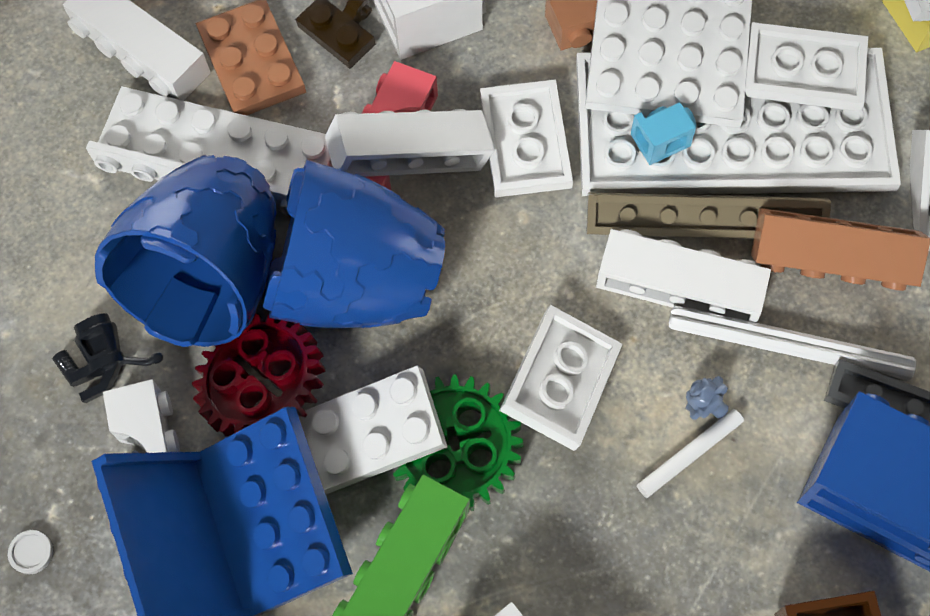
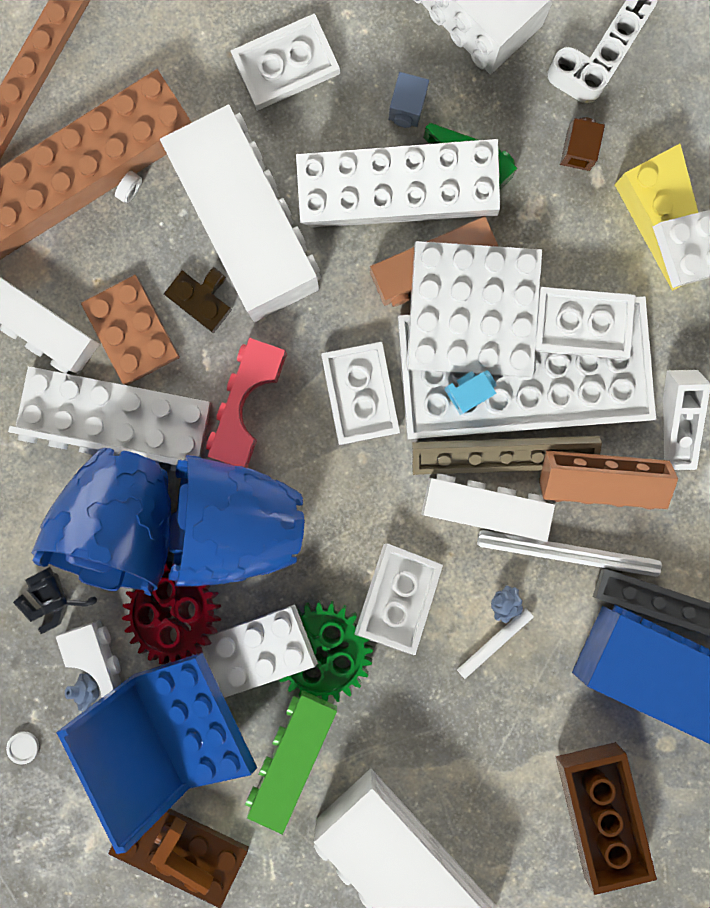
camera: 10 degrees left, 20 degrees up
(409, 142) = (267, 416): white brick -> none

